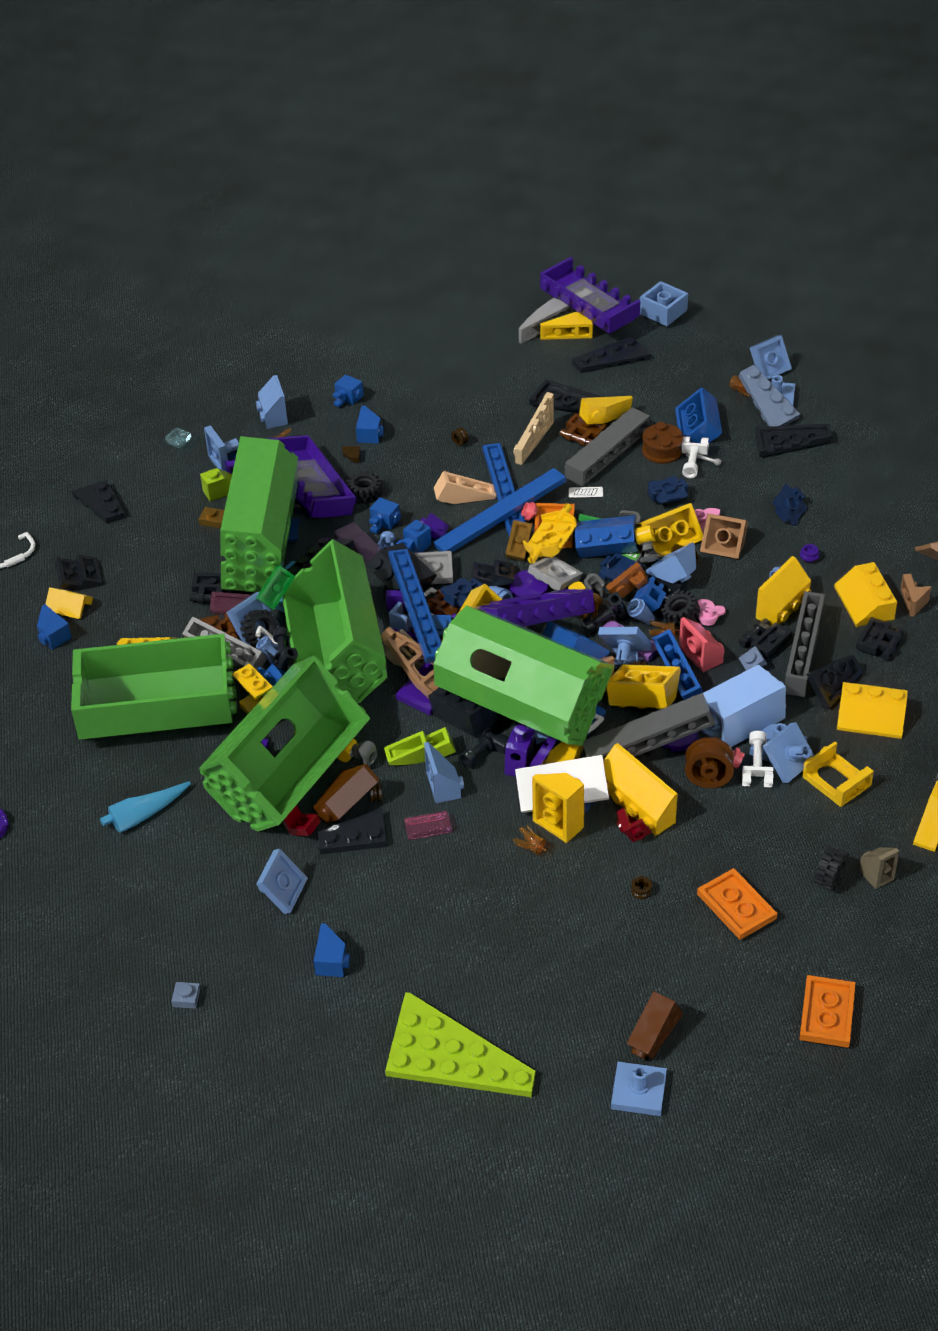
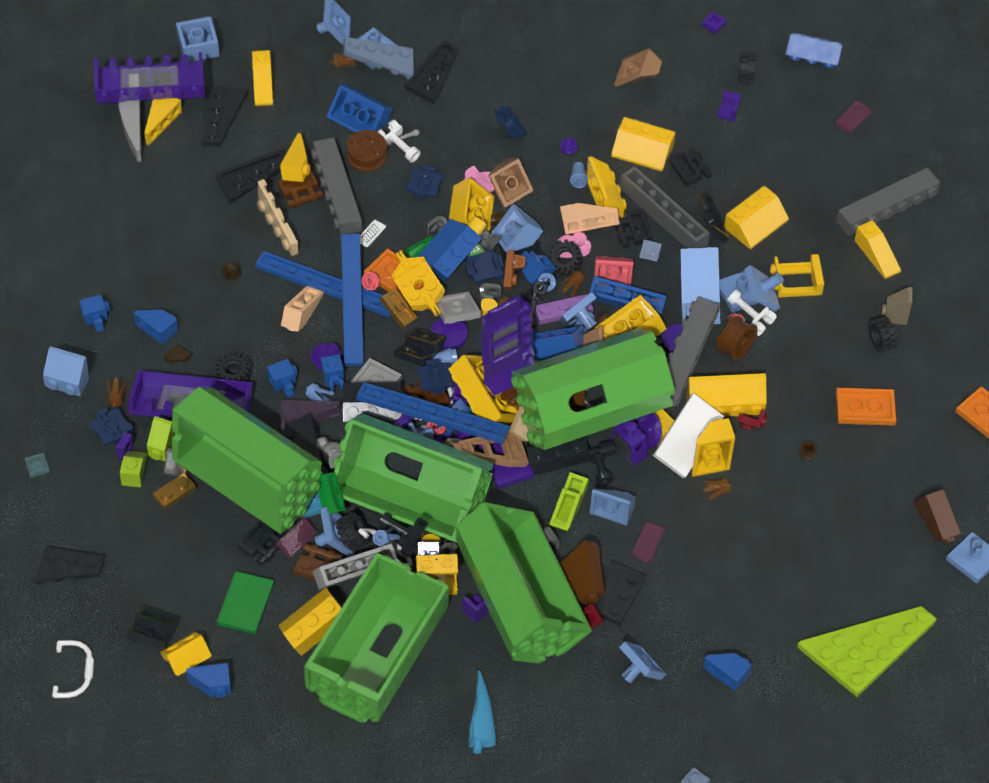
camera: 60 degrees left, 10 degrees up
(145, 610) = (245, 602): none -> green tile
(217, 449) = (95, 443): medium blue tile -> none
(671, 353) = (262, 78): none -> yellow slope
(738, 598) = (585, 217): none -> light nougat slope
(914, 596) = (666, 120): medium nougat slope -> none

